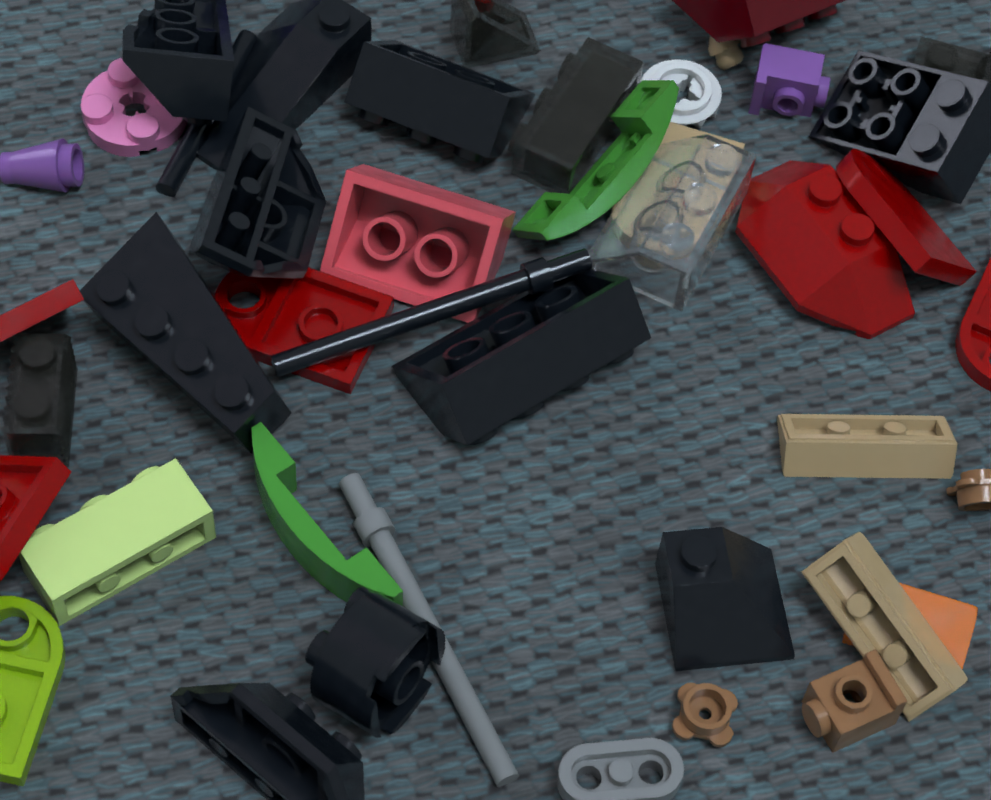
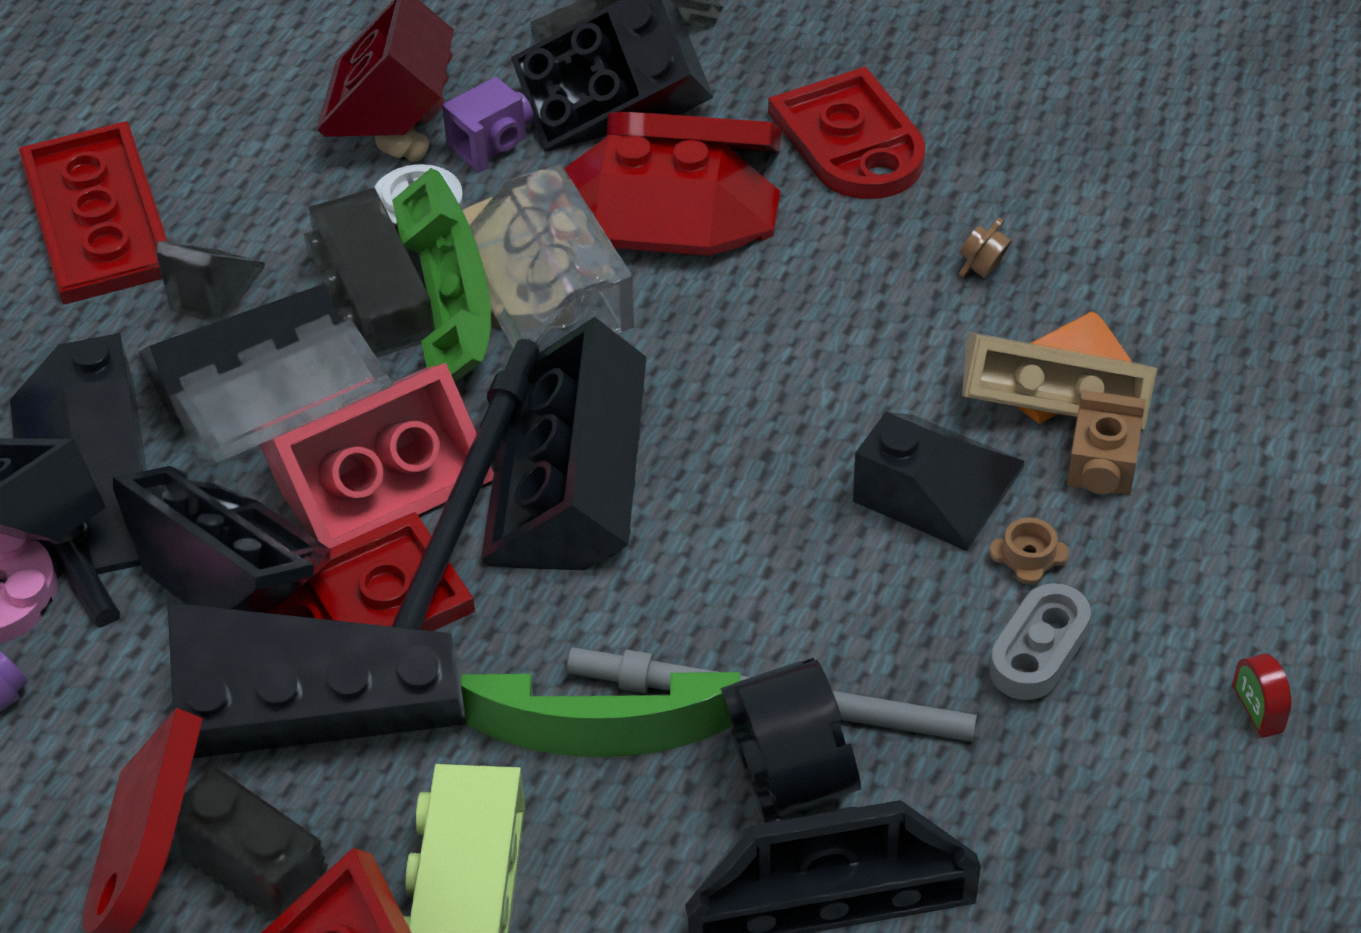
camera: 45 degrees left, 10 degrees down
(401, 141) = (277, 389): none -> clear slope
(866, 446) = (872, 297): tan slope -> none

